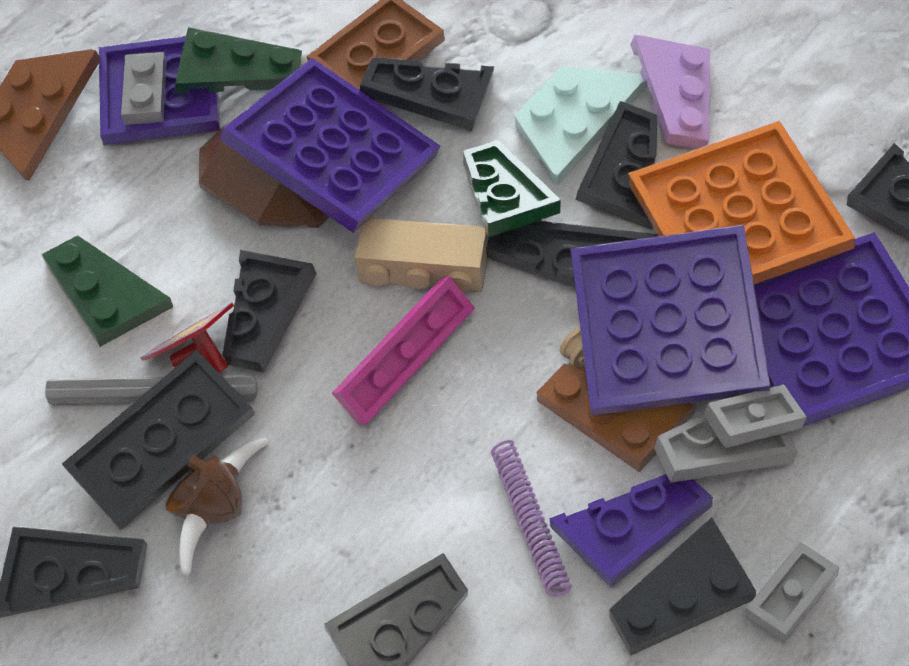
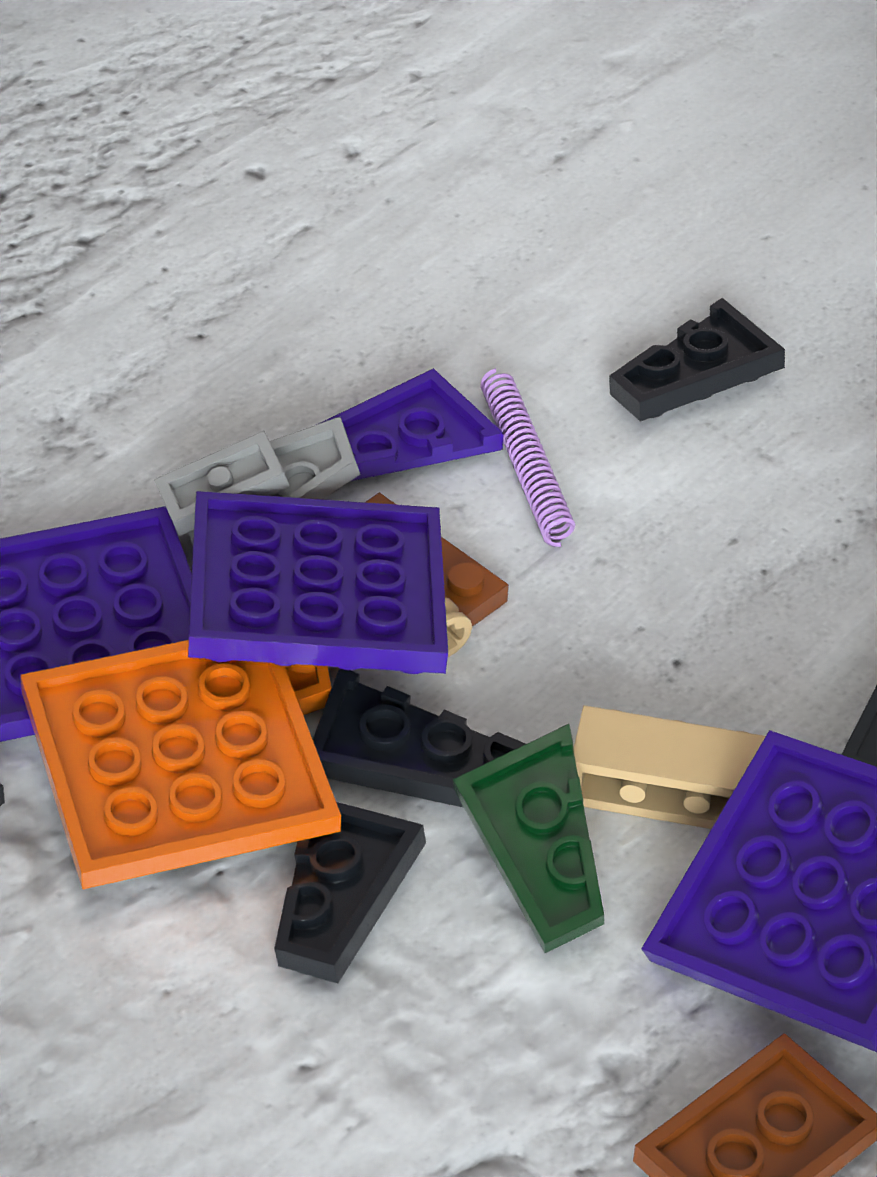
camera: 175 degrees right, 10 degrees down
(403, 351) = (703, 639): dark pink plate -> none
(434, 92) = (659, 1031): black wing -> none
(573, 114) = (411, 996): light aqua wing -> none
(680, 88) = (228, 1009): lavender wing -> none
(683, 591) = (341, 372): black wing -> none
(792, 592) = (214, 352): light grey plate -> none

